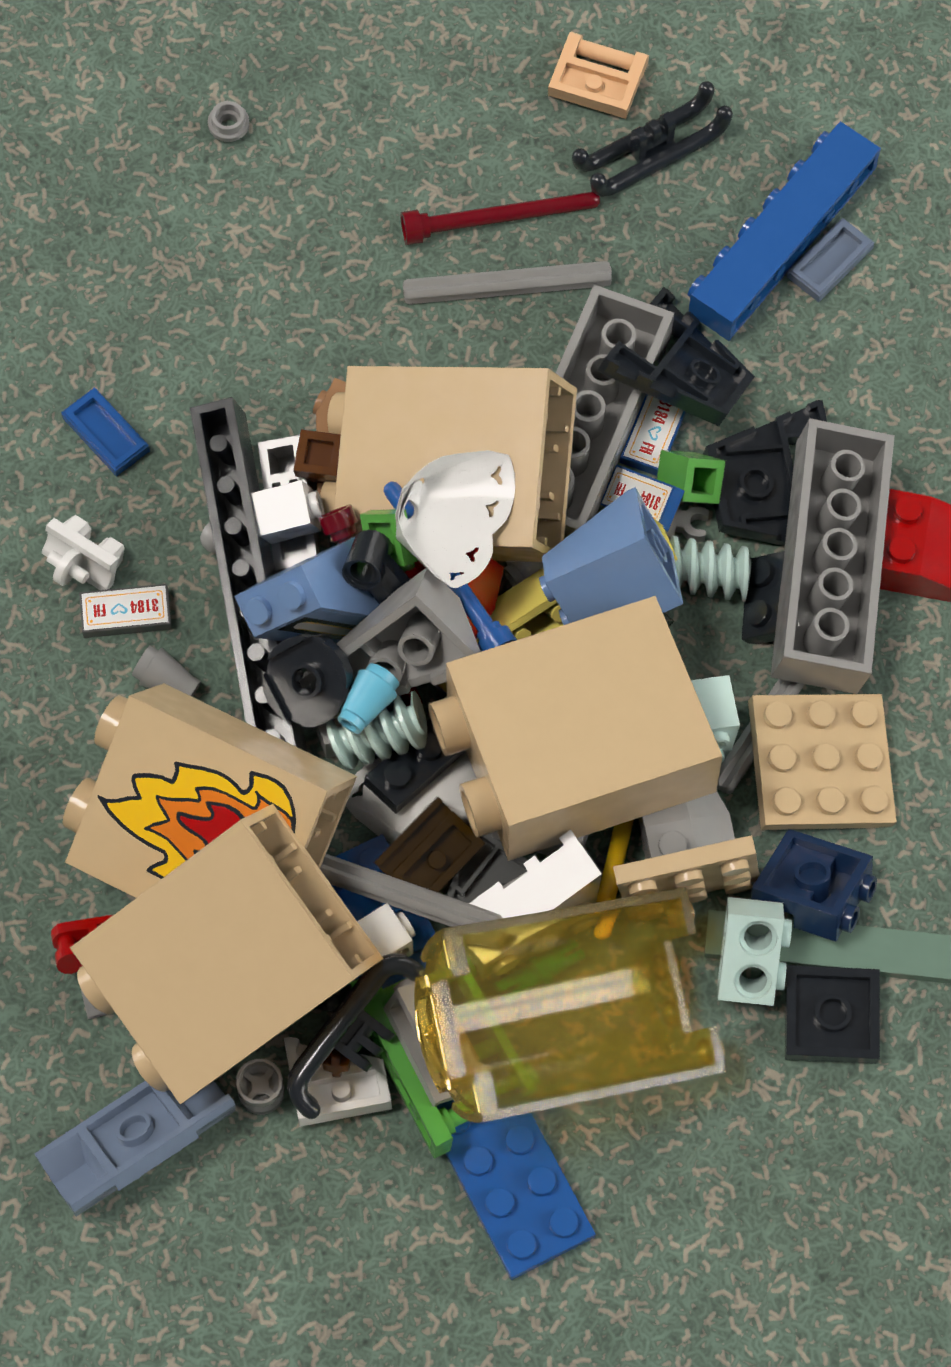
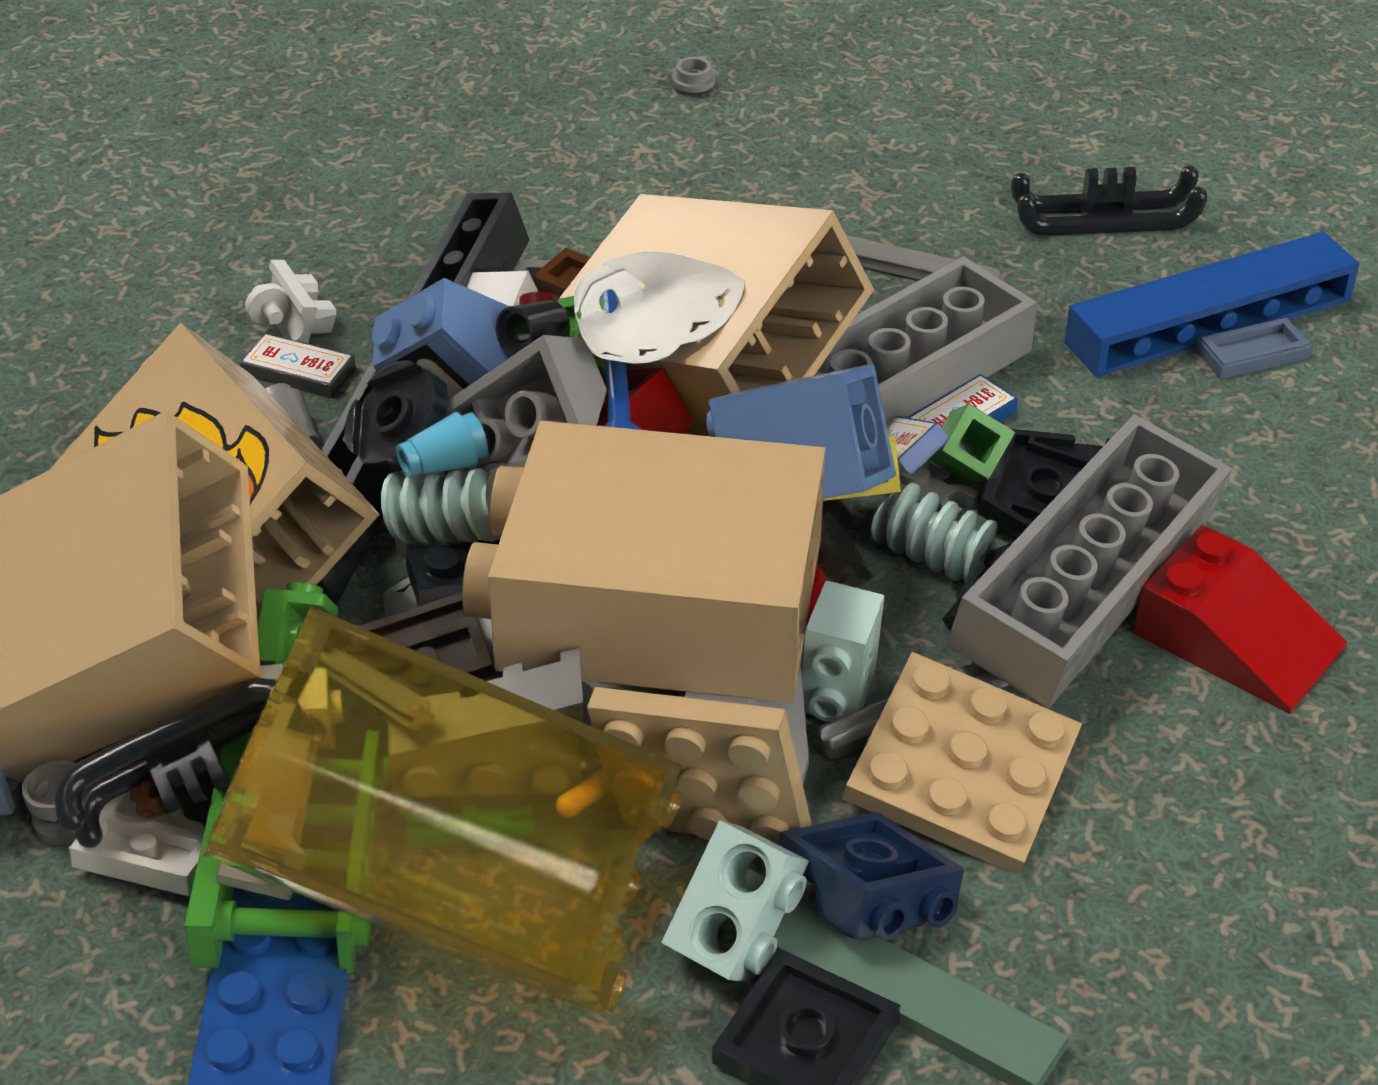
camera: 30 degrees right, 25 degrees down
(105, 431) = (398, 237): blue tile -> none
(343, 867) = (283, 616): none -> bright green bracket
(419, 225) = (821, 191): dark red piece -> none
(596, 84) = (1079, 144): light nougat plate -> none
(692, 375) = (1024, 364): black wing -> none

